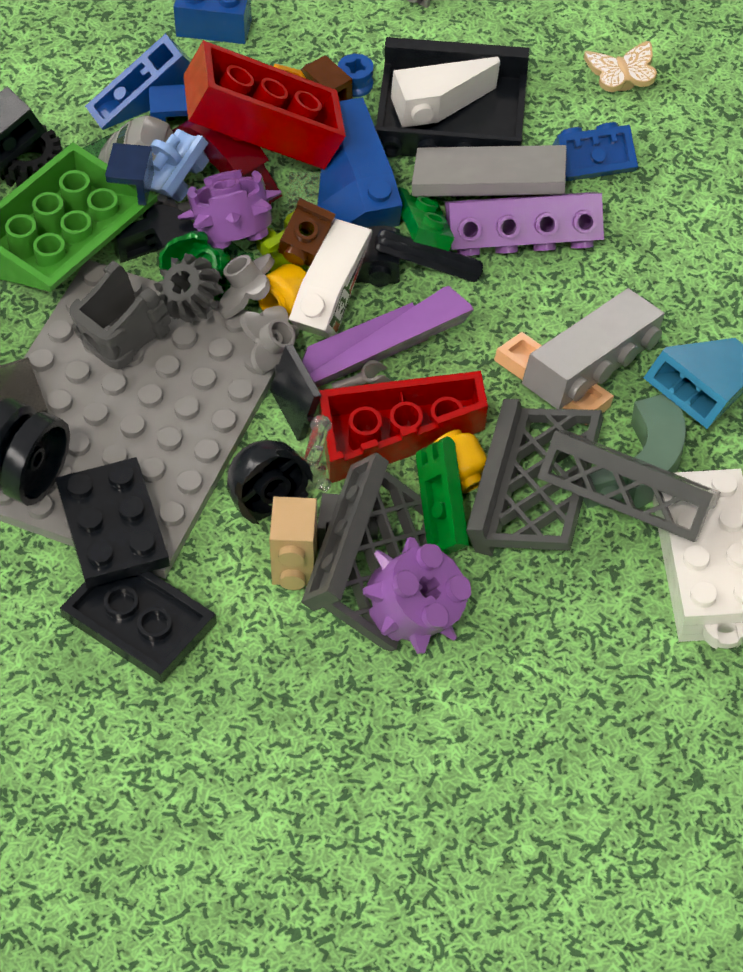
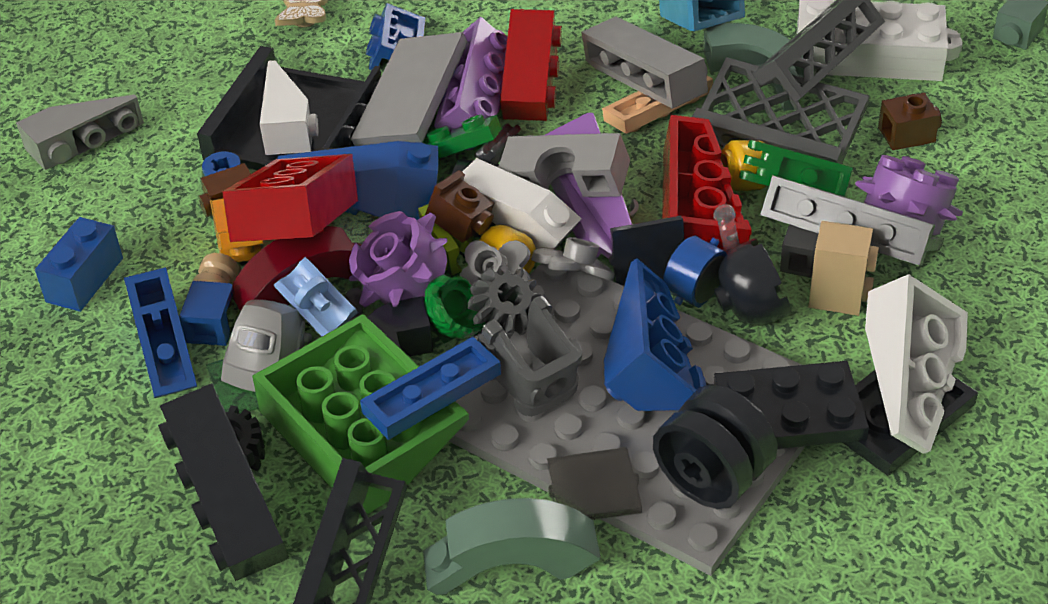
camera: 75 degrees left, 10 degrees down
(57, 248) = (430, 387): none -> blue plate
(131, 166) = (338, 306): dark blue panel -> none
(154, 408) = (646, 349): none -> blue wedge
(183, 609) = (914, 349): none -> white wedge
(281, 423) = (694, 271): none -> blue piece
(391, 292) = (594, 159): none -> light grey arch
(563, 259) = (530, 65): none -> red wedge
(571, 601) = (909, 121): none -> reddish brown brick

